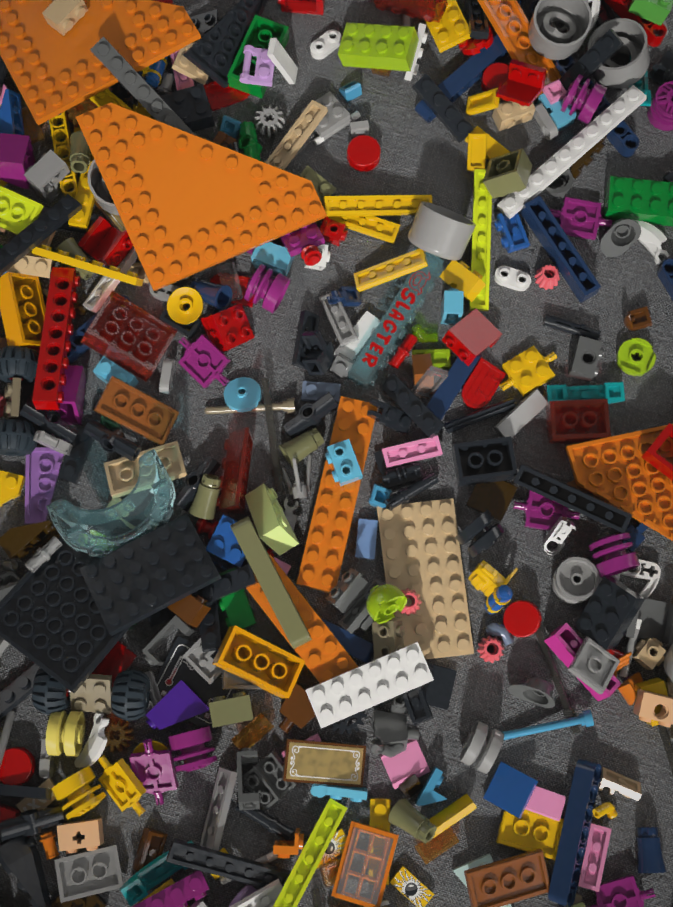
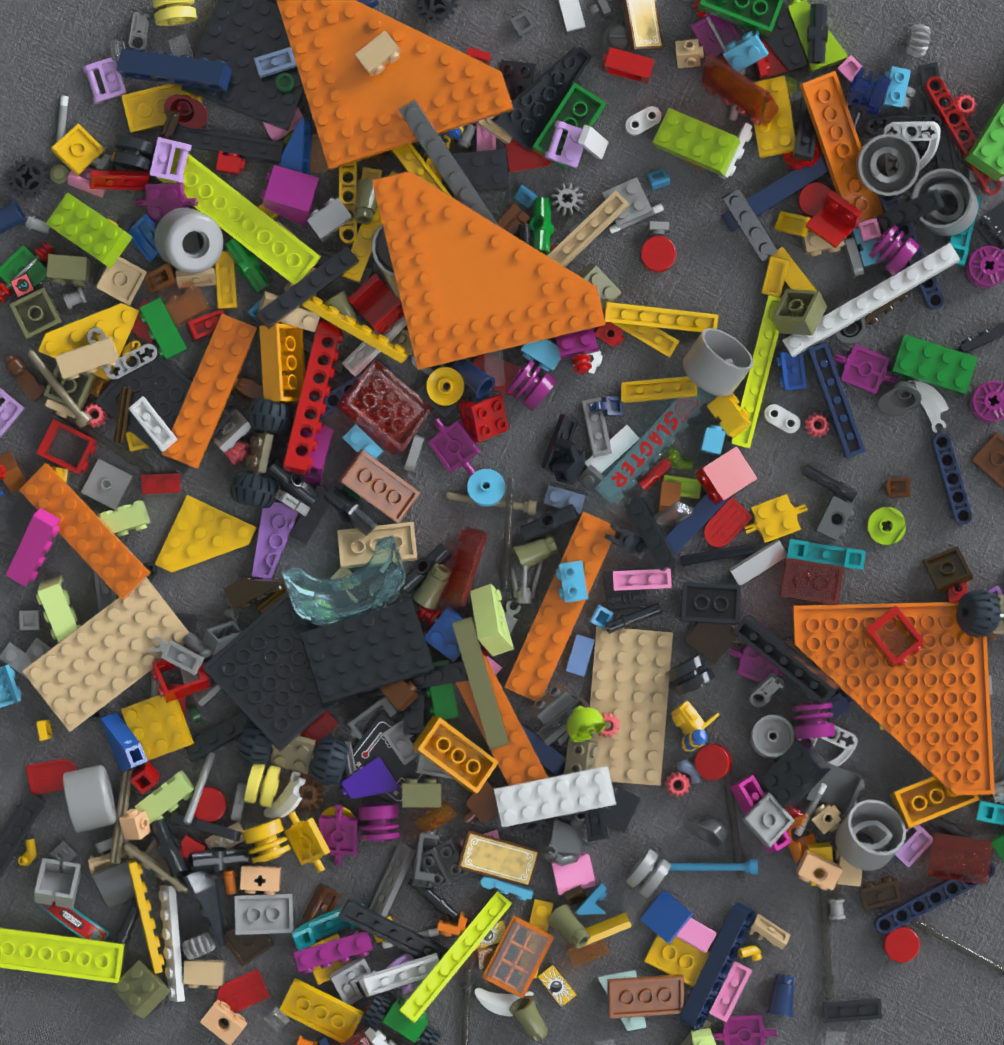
camera: 10 degrees right, 10 degrees up
(43, 554) = (267, 612): light grey pin -> none

